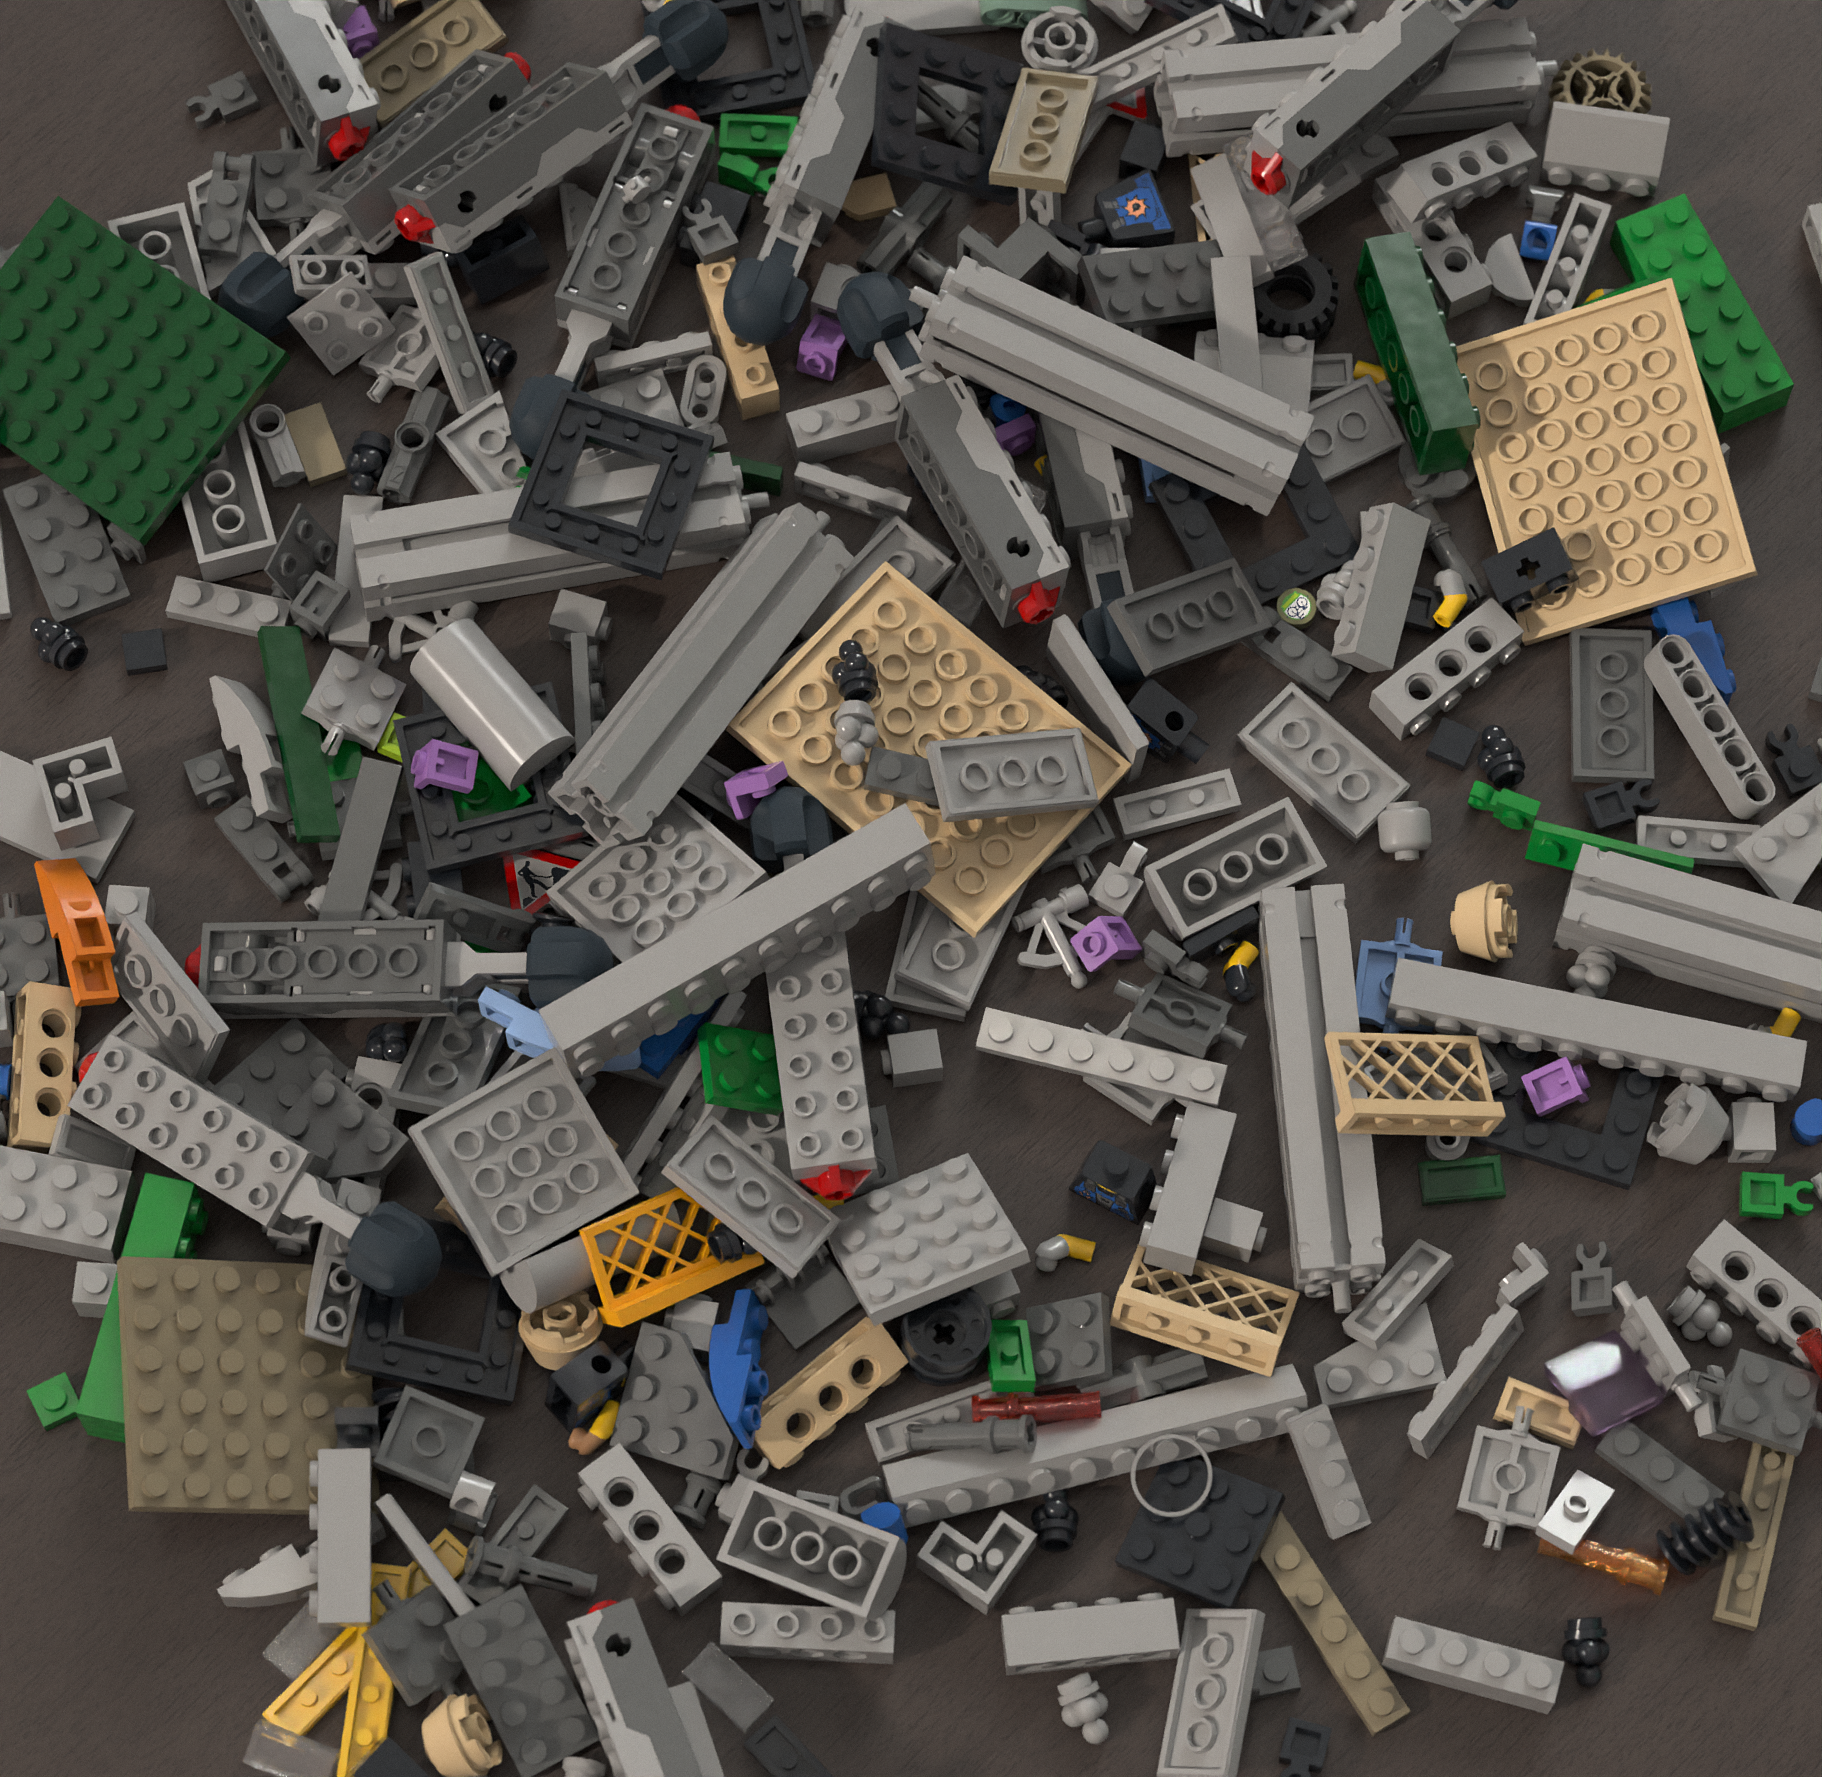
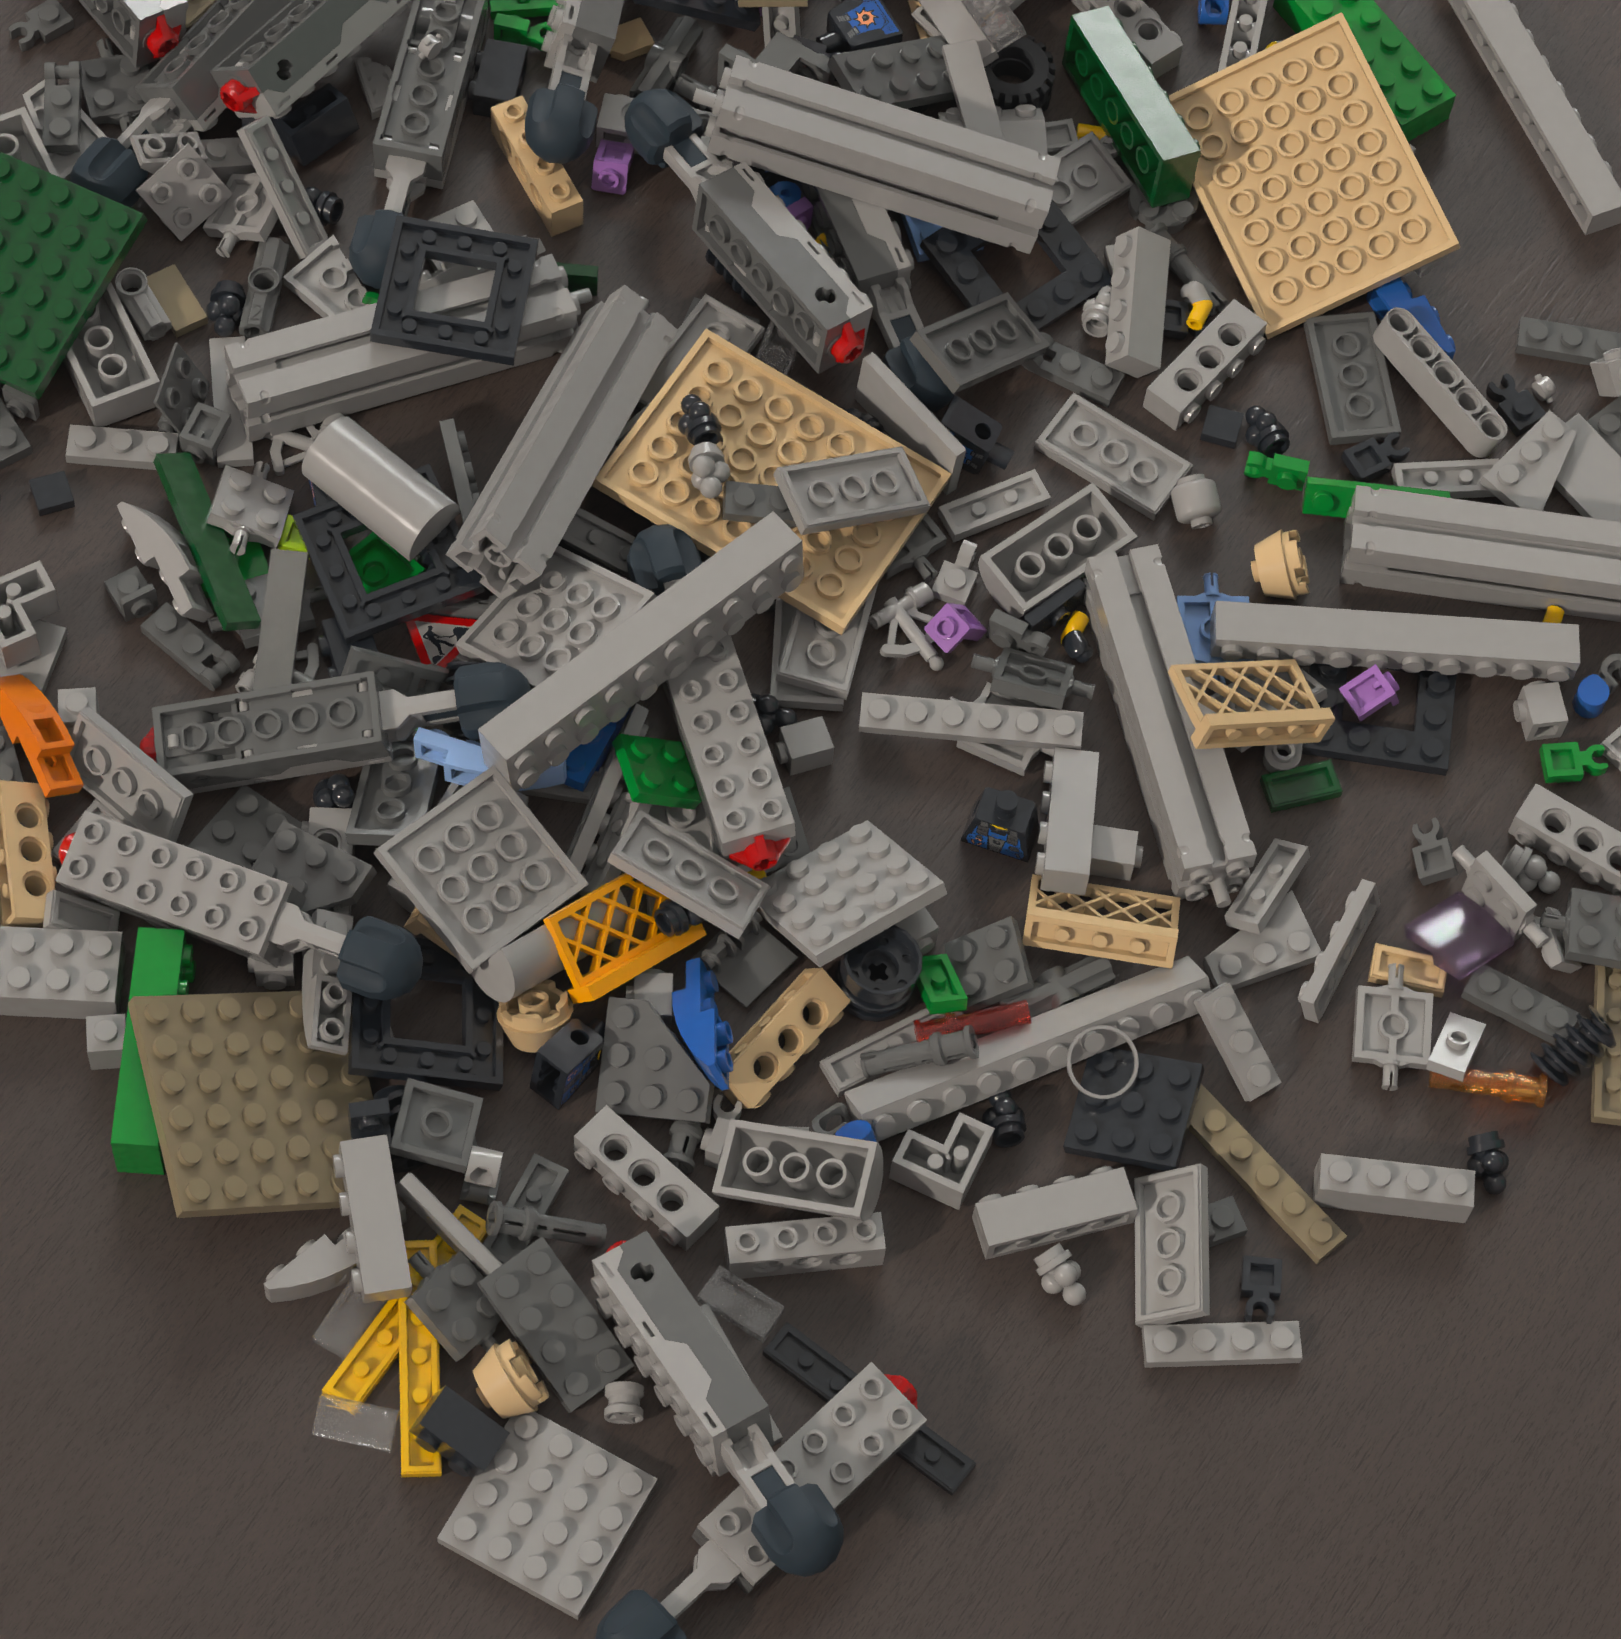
camera: 15 degrees left, 5 degrees down
(54, 1401) = (83, 1145): green plate -> none
(445, 766) = (348, 545): medium lavender bracket -> none
(579, 614) = (434, 408): light grey brick -> none
(600, 1431) = (584, 1102): arm -> none
(652, 355) = (482, 188): light grey plate -> none
(701, 395) = (514, 219): light grey plate -> none
(708, 235) = (499, 82): dark grey plate -> none
(747, 787) = (621, 528): medium lavender bracket -> none
(843, 425) = (644, 227): light grey brick -> none
(851, 492) = (660, 282): light grey plate -> none
(1061, 1246) = (967, 887): arm -> none
(1297, 607) = (1066, 331): tile -> none
(1508, 272) = (1195, 40): light grey tile -> none
(1510, 577) = (1275, 258): black brick -> none
(1520, 1286) = (1375, 857): light grey bracket -> none
(1592, 972) = (1380, 594): light grey piece -> none
(1690, 1125) = (1490, 710): light grey cone -> none

